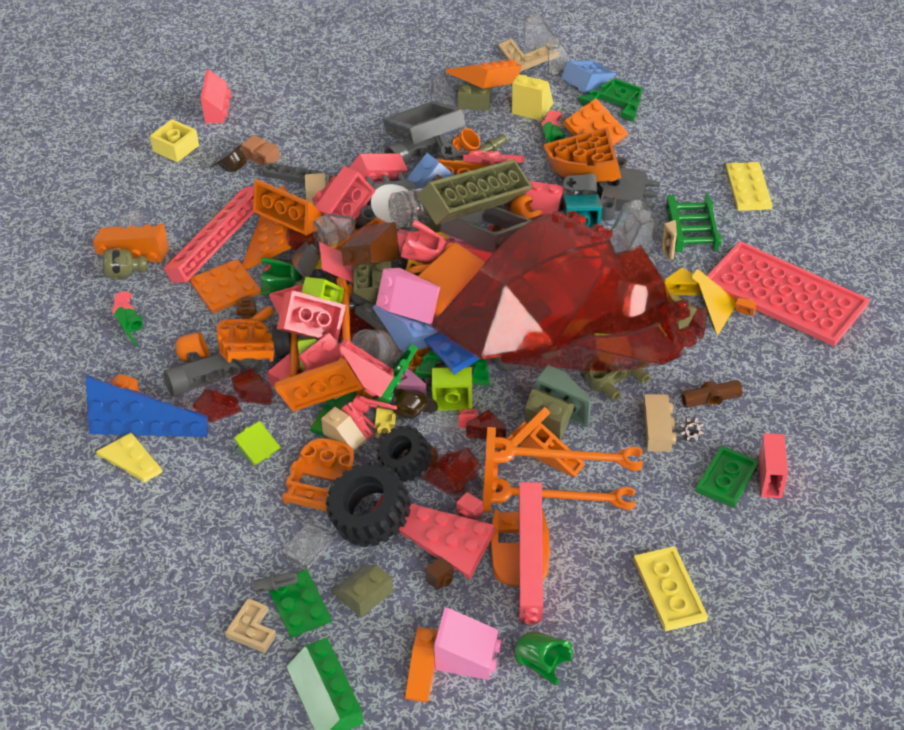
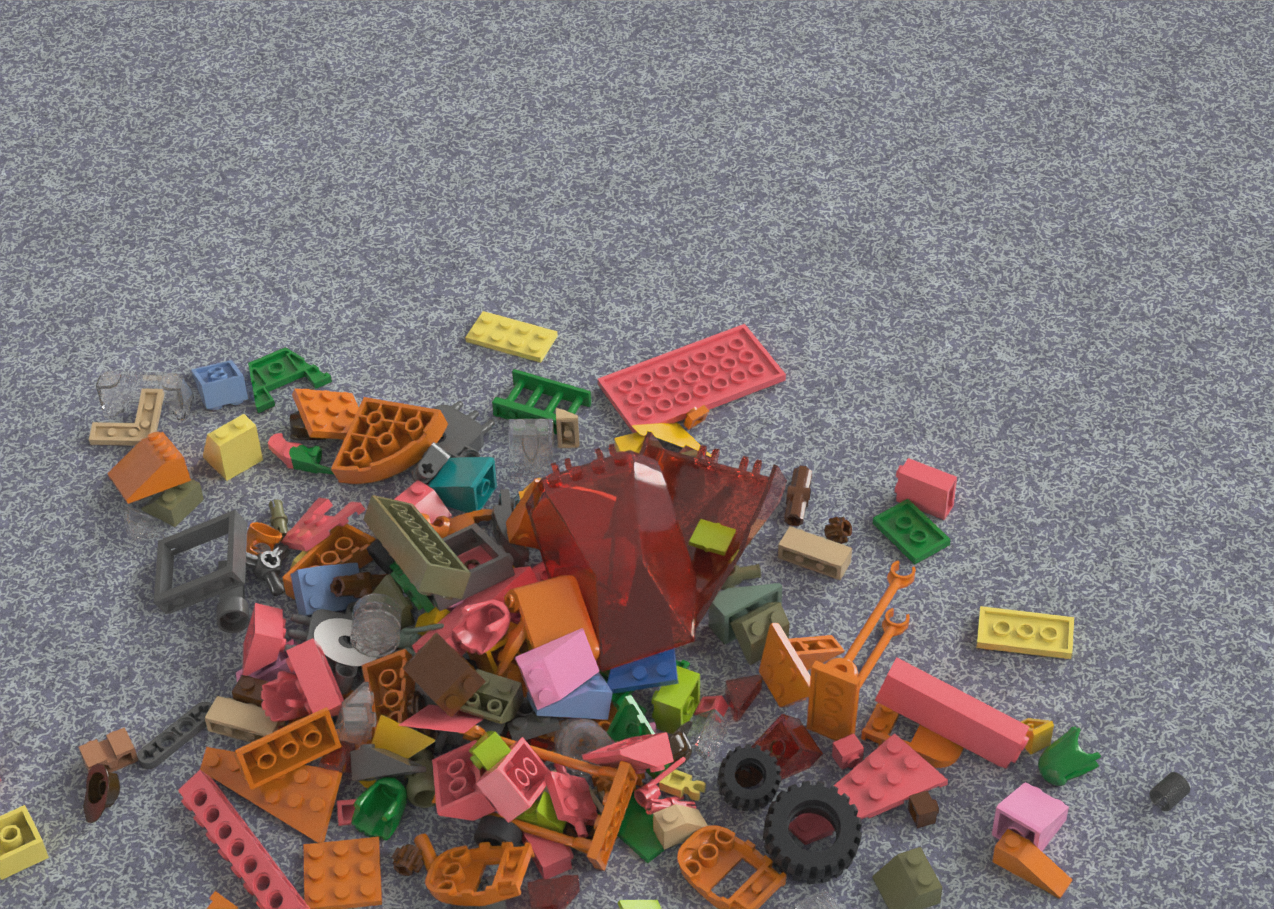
camera: 65 degrees left, 0 degrees up
(560, 624) = (1039, 734): none -> yellow slope

